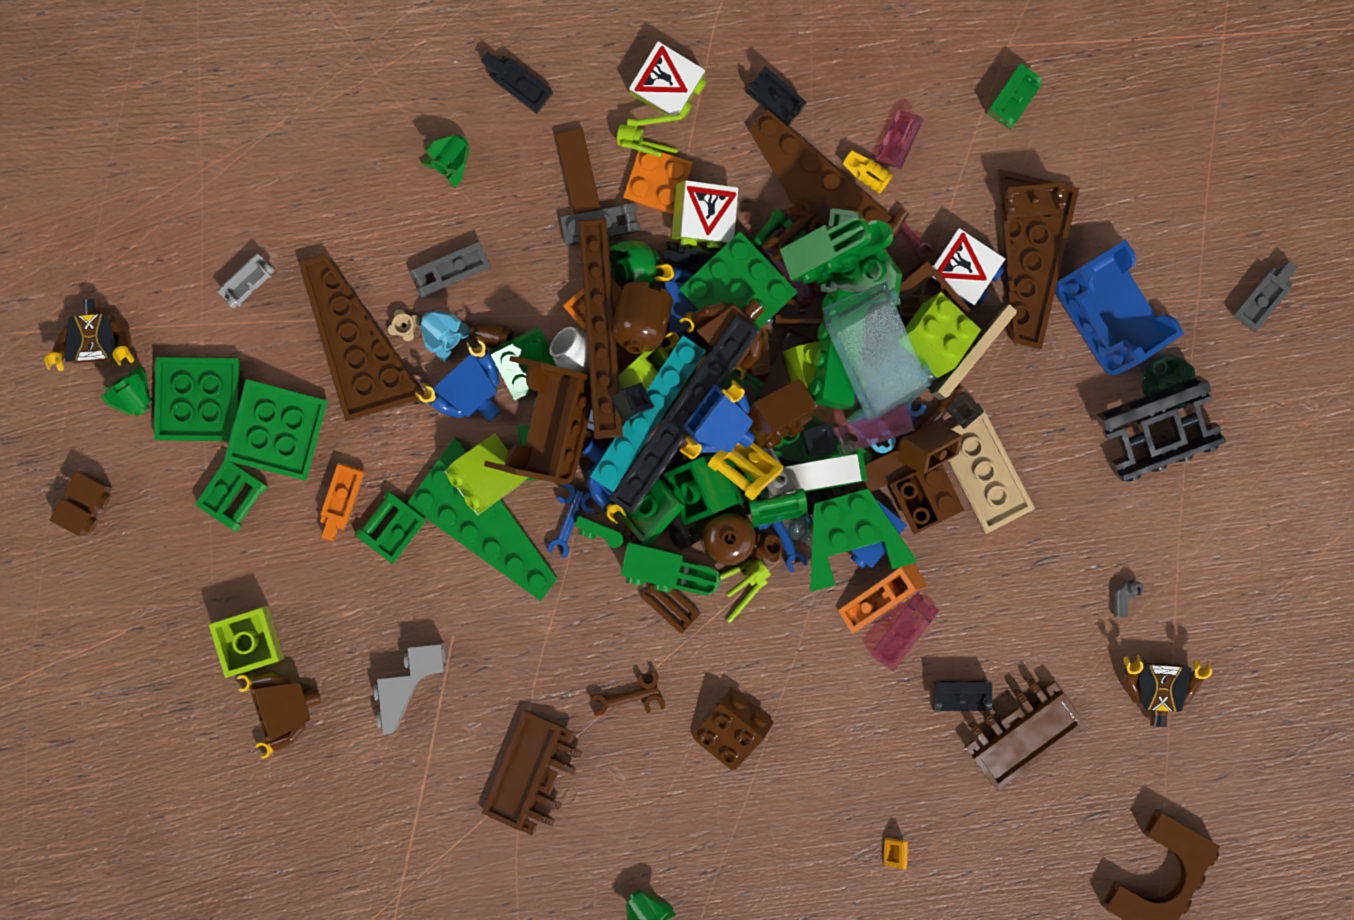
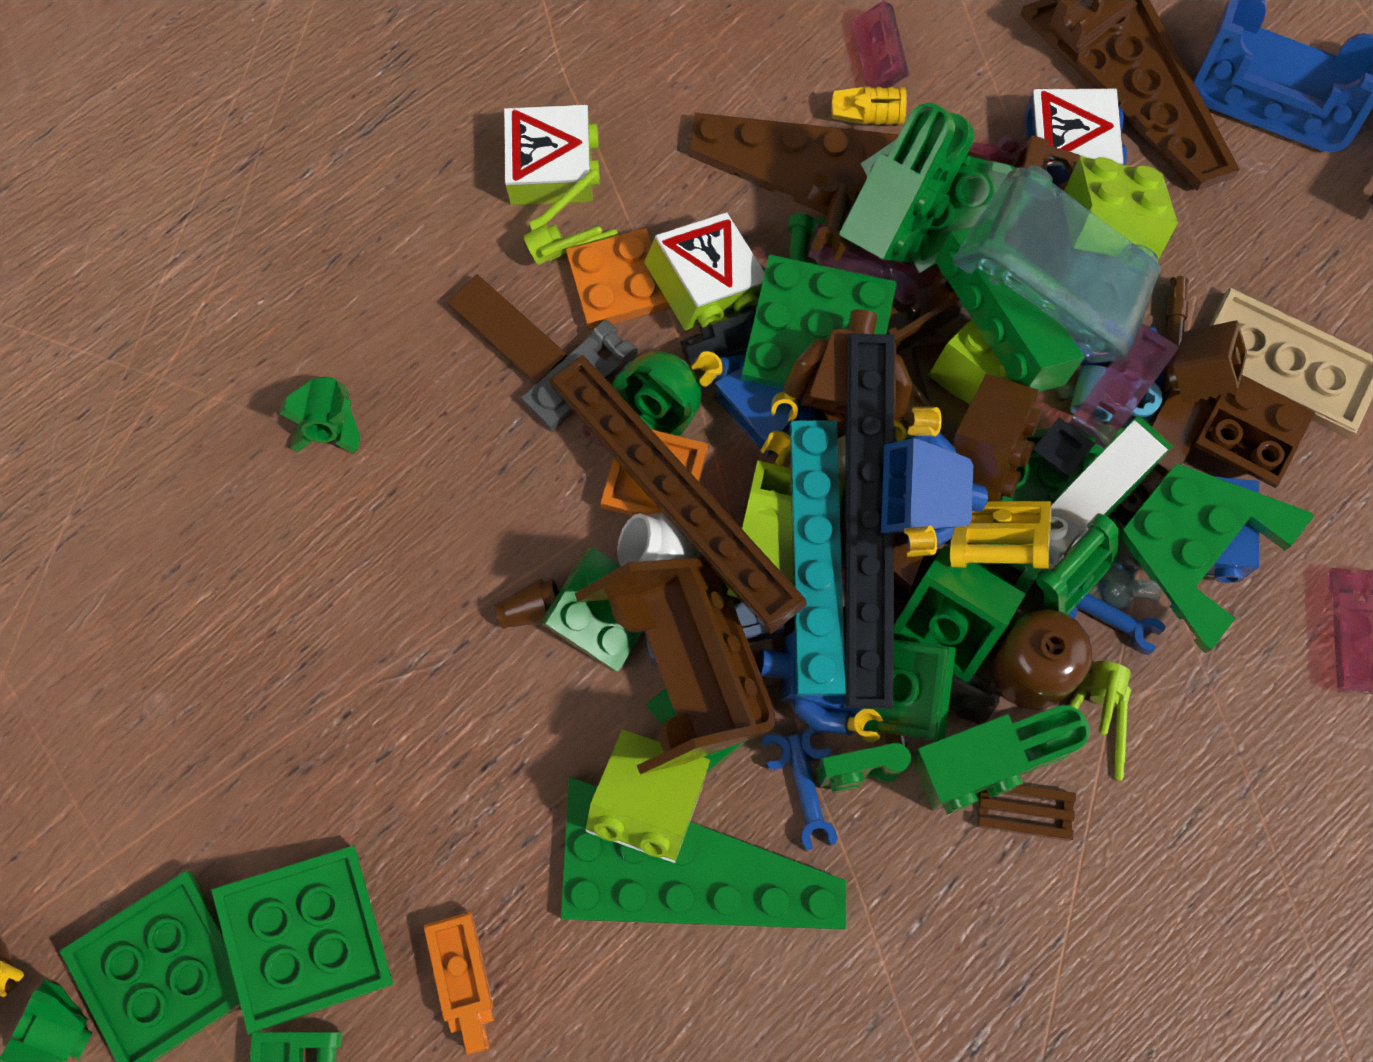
camera: 25 degrees left, 15 degrees down
(245, 281) = (134, 754): light grey hinge -> none
(359, 357) = (364, 756): reddish brown wing -> none
(396, 328) = (388, 664): tan plate -> none
(397, 533) = (575, 971): green plate -> none
(442, 332) = (459, 642): medium azure brick -> none
(451, 269) = (417, 556): dark grey plate -> none
(467, 387) = (541, 694): blue torso -> none
(518, 82) = (355, 271): black hinge -> none
(632, 402) = (787, 548): black slope -> none
(641, 317) = (717, 436): reddish brown cylinder -> none
(648, 692) = (1089, 957): reddish brown bar -> none
(733, 729) = (1247, 928): reddish brown bracket -> none
(775, 547) = (1103, 636): reddish brown plate -> none
(776, 96) = (695, 87): black hinge -> none
(883, 597) = (1297, 604): orange slope -> none
(964, 410) = (1208, 300): clear smoke slope -> none
(974, 352) = (1173, 162): tan tile -> none

